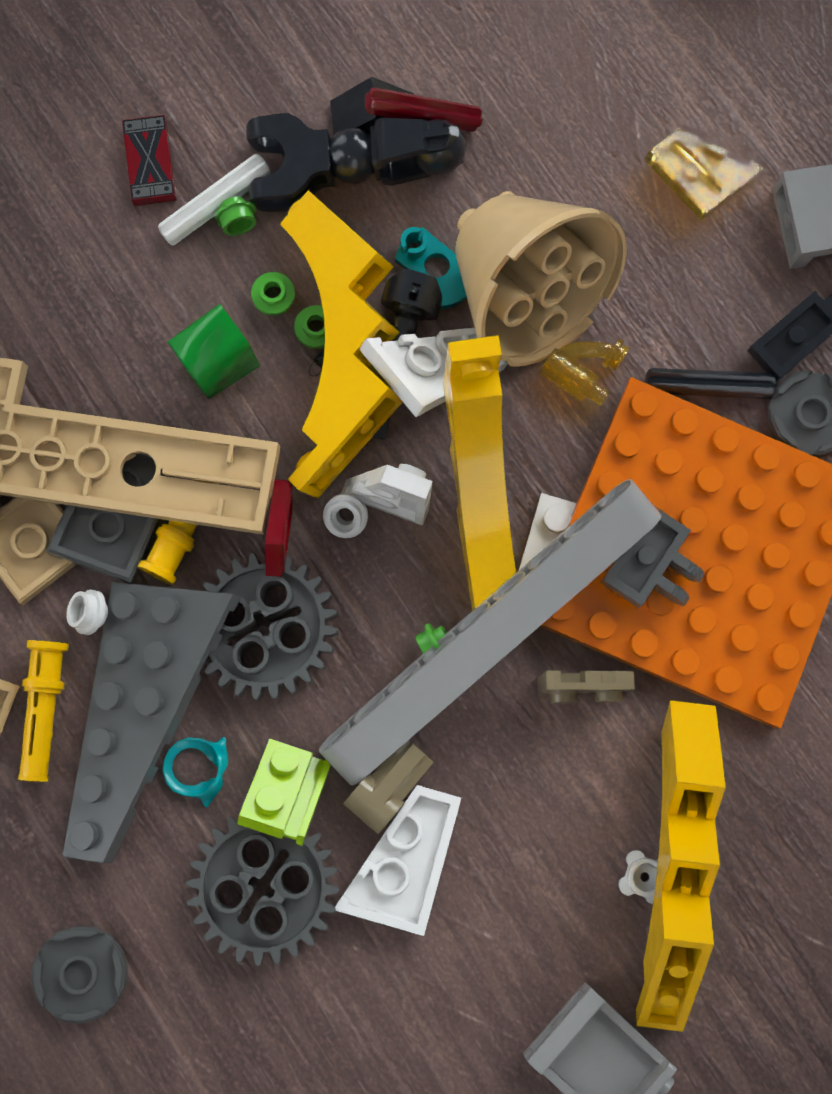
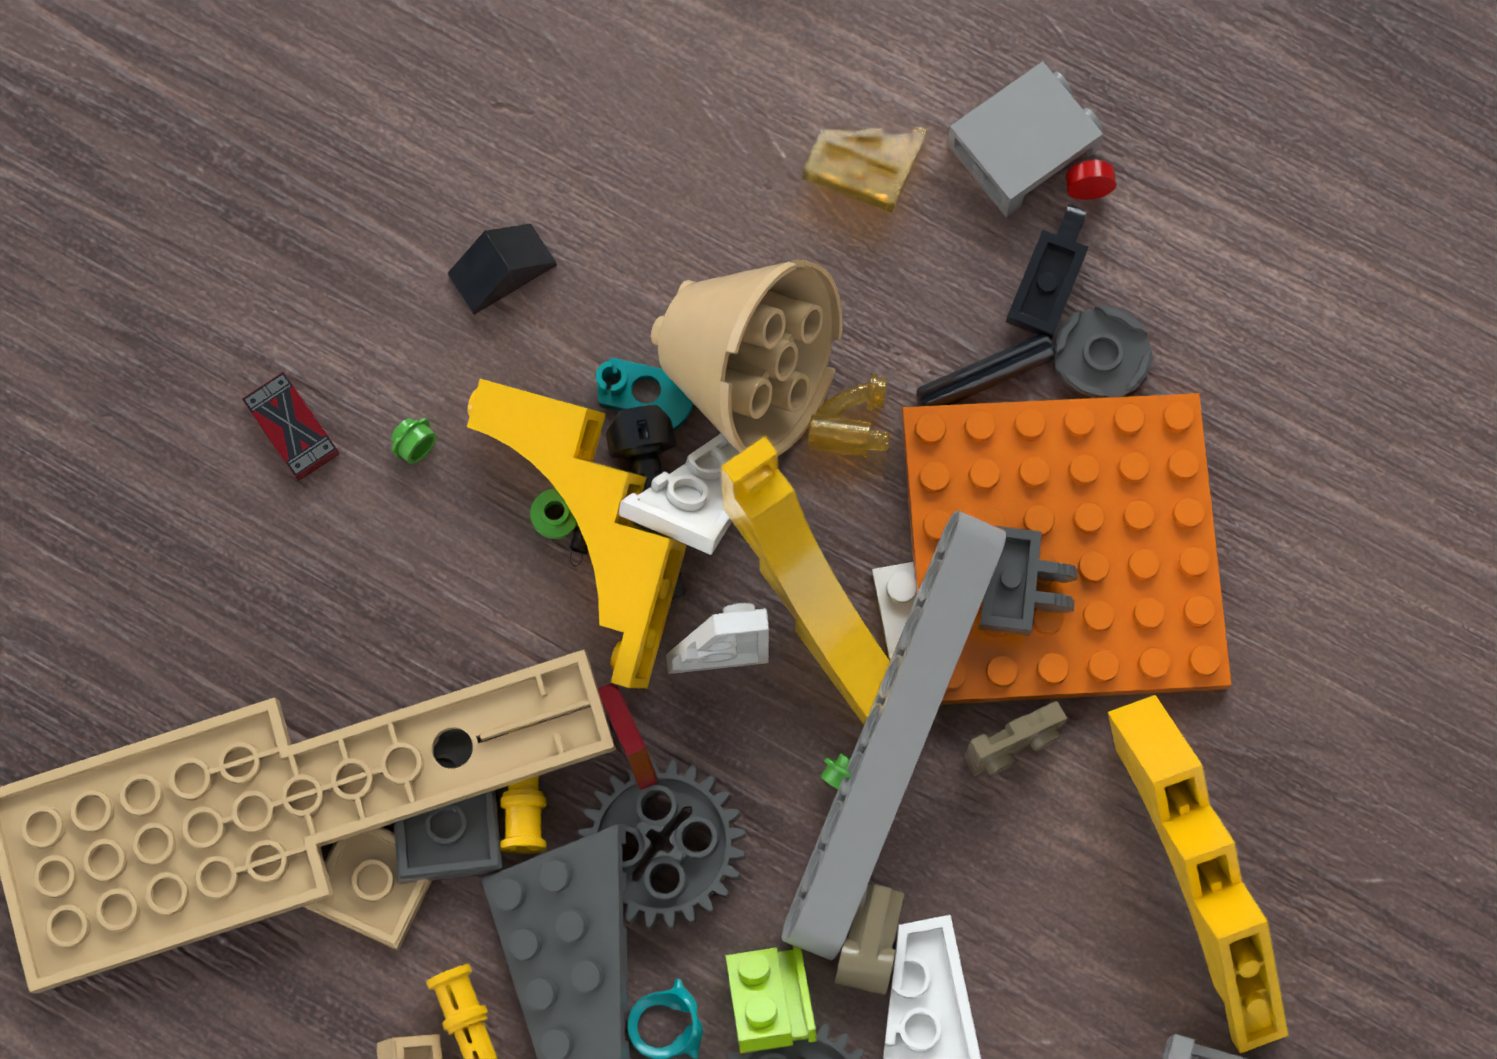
camera: 20 degrees left, 5 degrees down
(87, 611) = (471, 921): white plate -> none
(207, 203) = (377, 437): white axle -> none
(214, 352) = (469, 590): green piece -> none
(277, 305) = (497, 515): bright green plate -> none
(336, 524) = (690, 705): white plate -> none
(394, 151) = (503, 320): black piece -> none
(410, 106) = (553, 238): dark red axle -> none
(632, 883) = (1162, 913): white plate -> none

